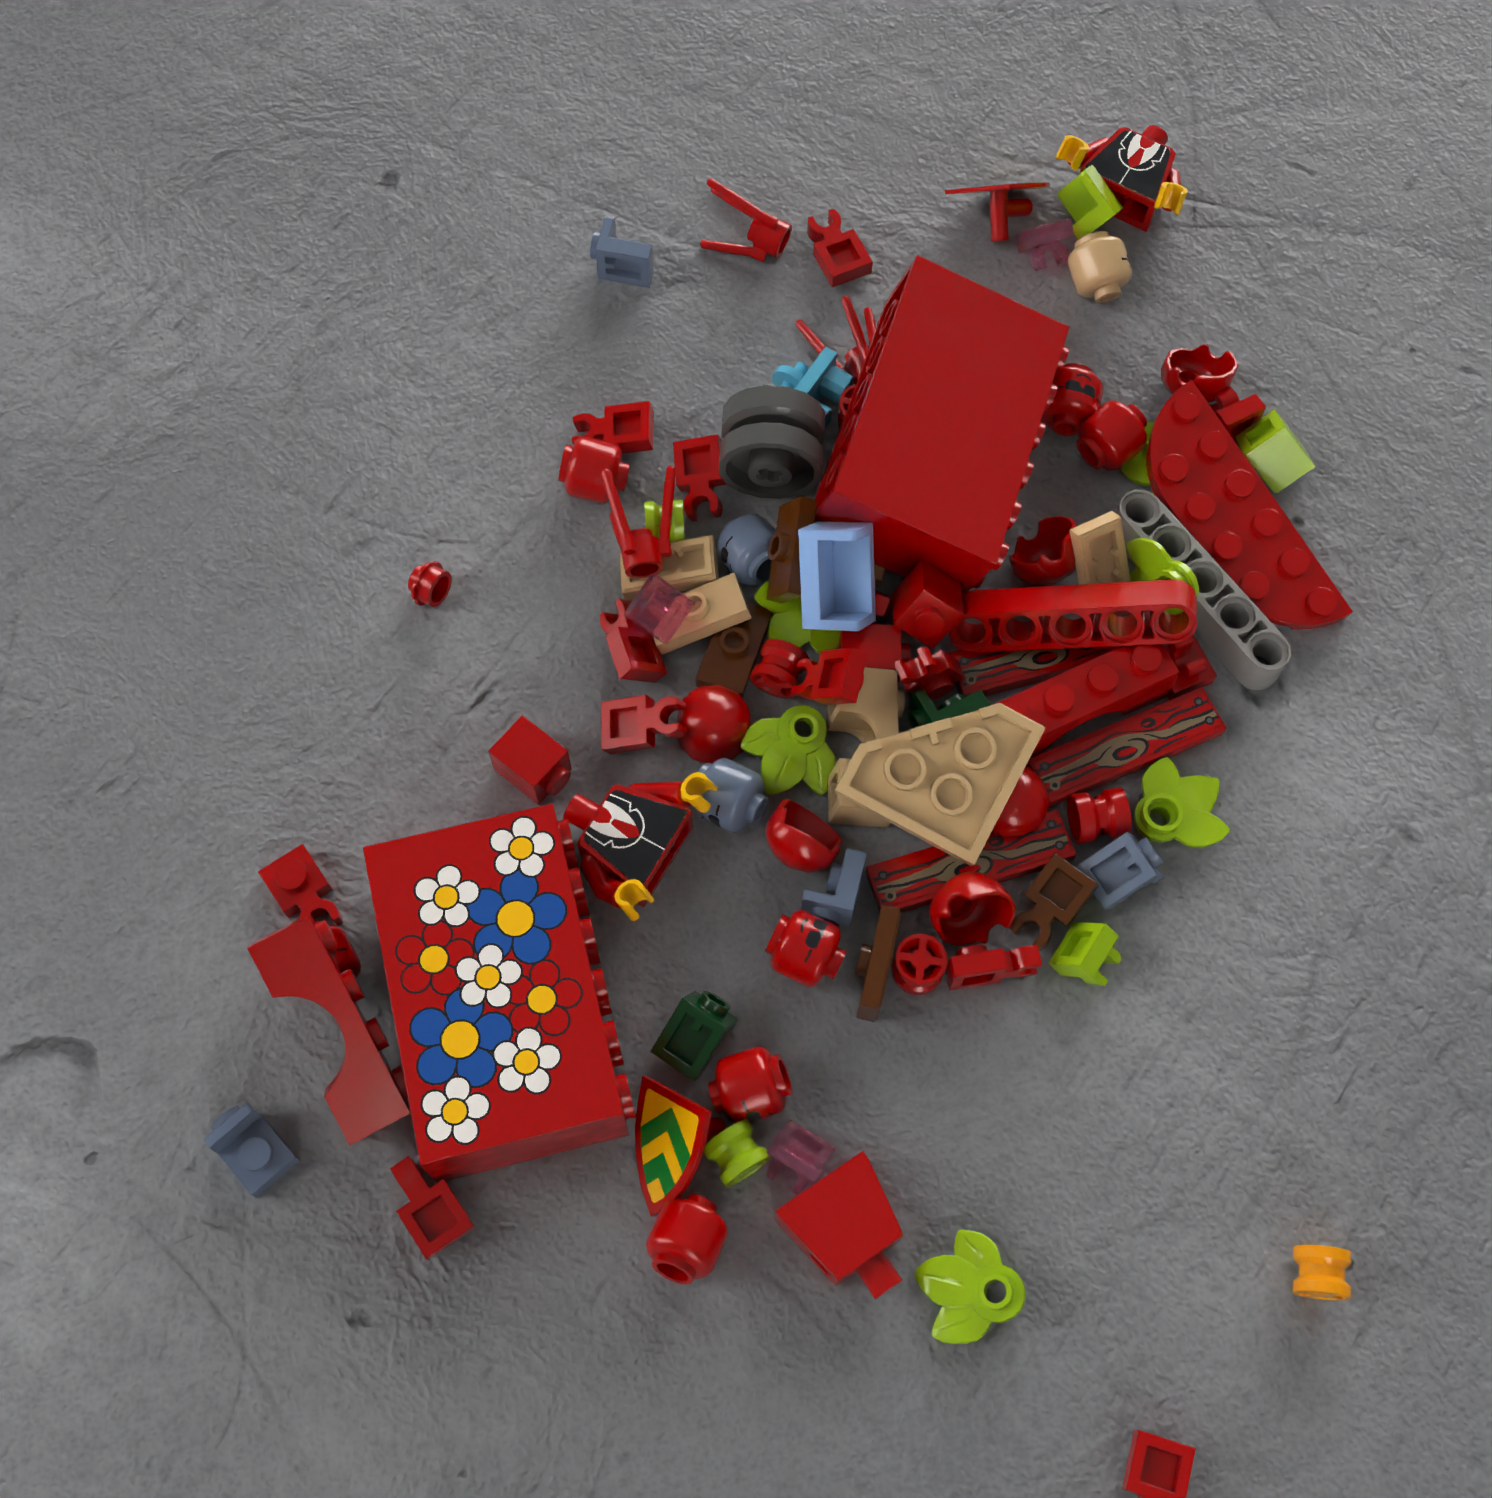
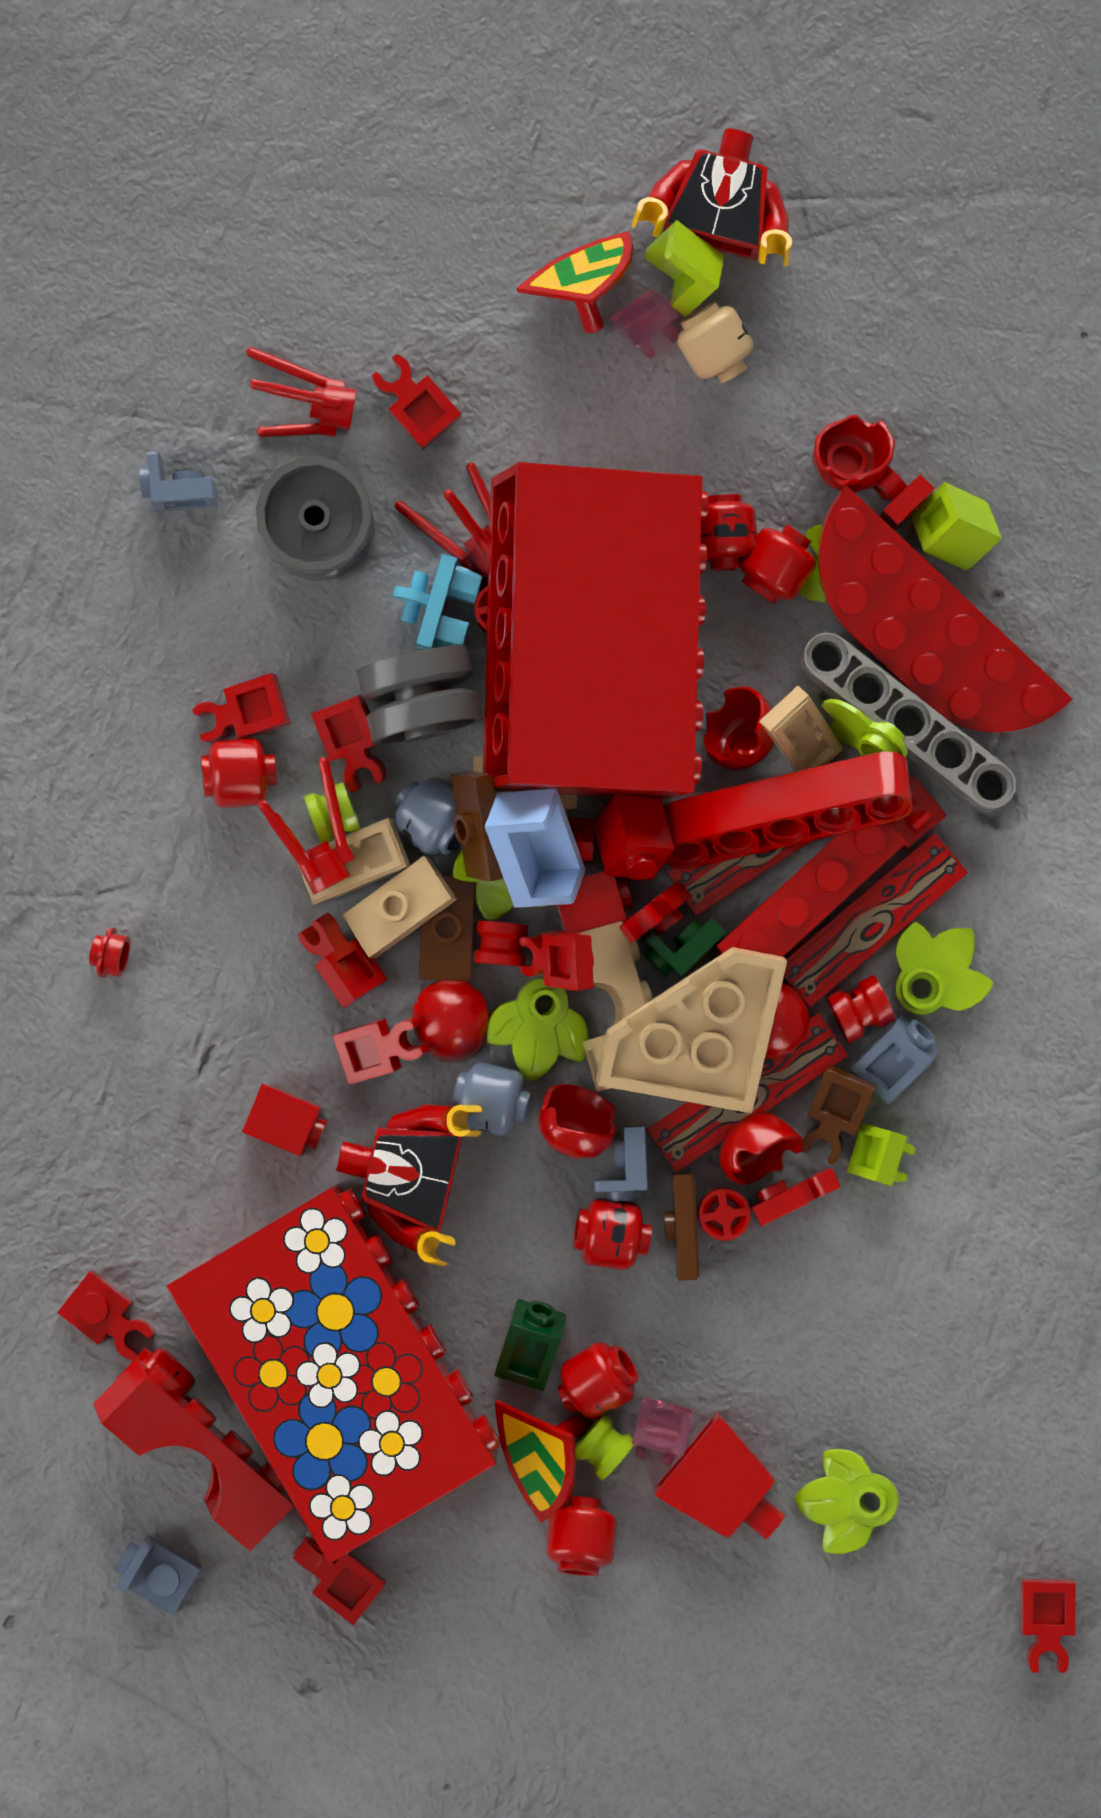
camera: 15 degrees left, 20 degrees up
(659, 608) = (362, 929): clear pink tile -> none
(727, 299) = (295, 495): none -> dark grey wheel

